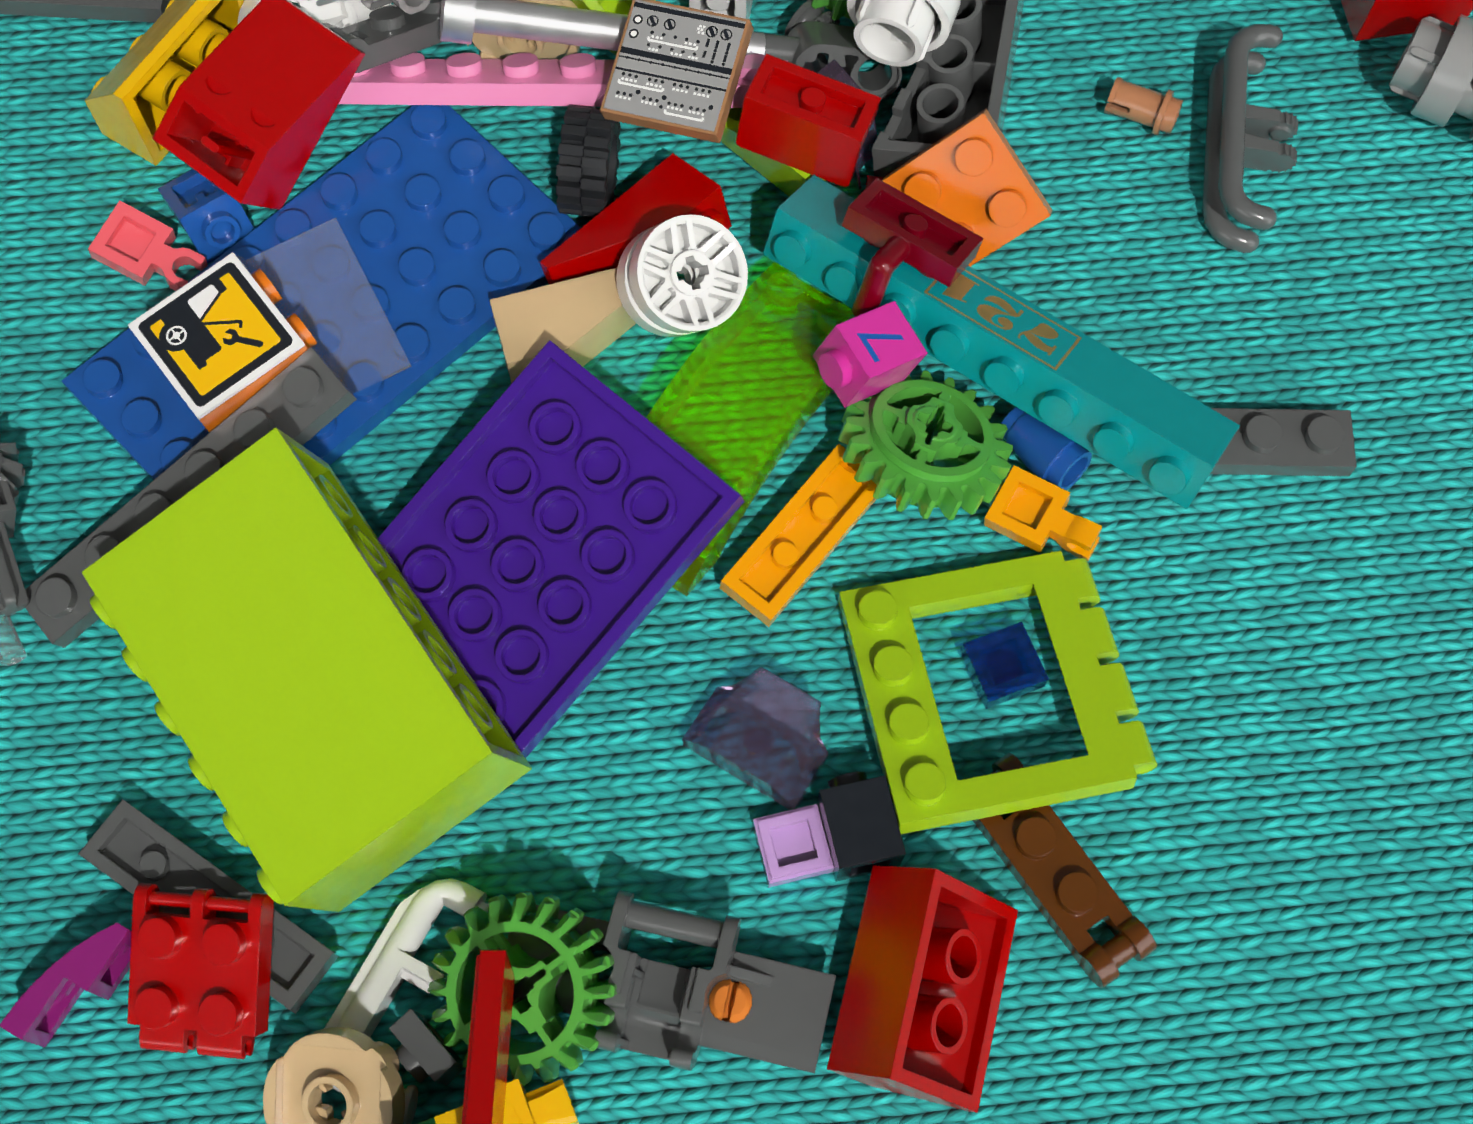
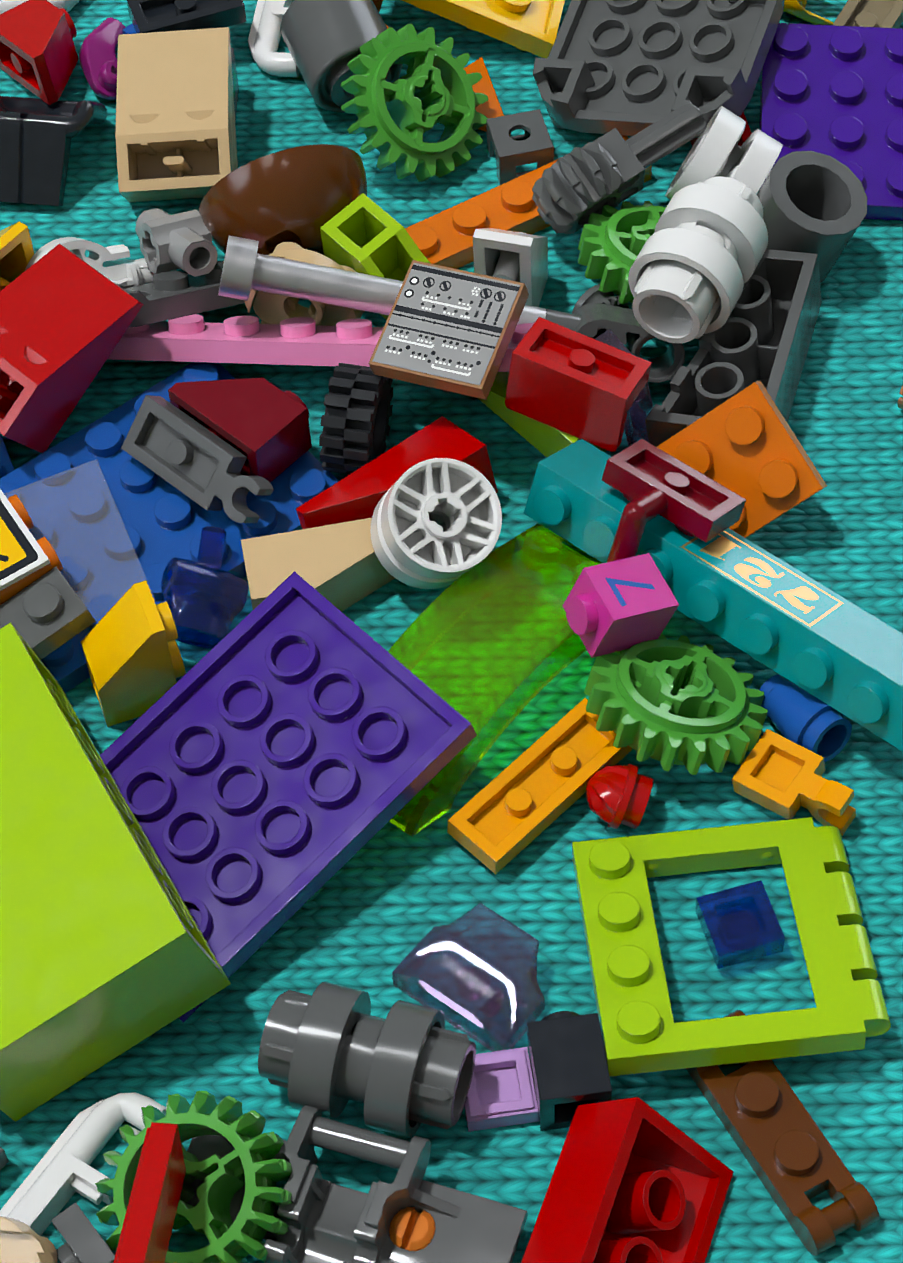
camera: 10 degrees right, 15 degrees down
(398, 430) = (133, 655): none -> yellow slope
(433, 215) = (193, 459): none -> dark grey plate
(455, 357) = (202, 594): none -> clear blue piece
(478, 174) = (250, 417): none -> dark red slope
(645, 833) = (337, 1052): none -> dark grey piece
(881, 541) = (619, 795): none -> red plate

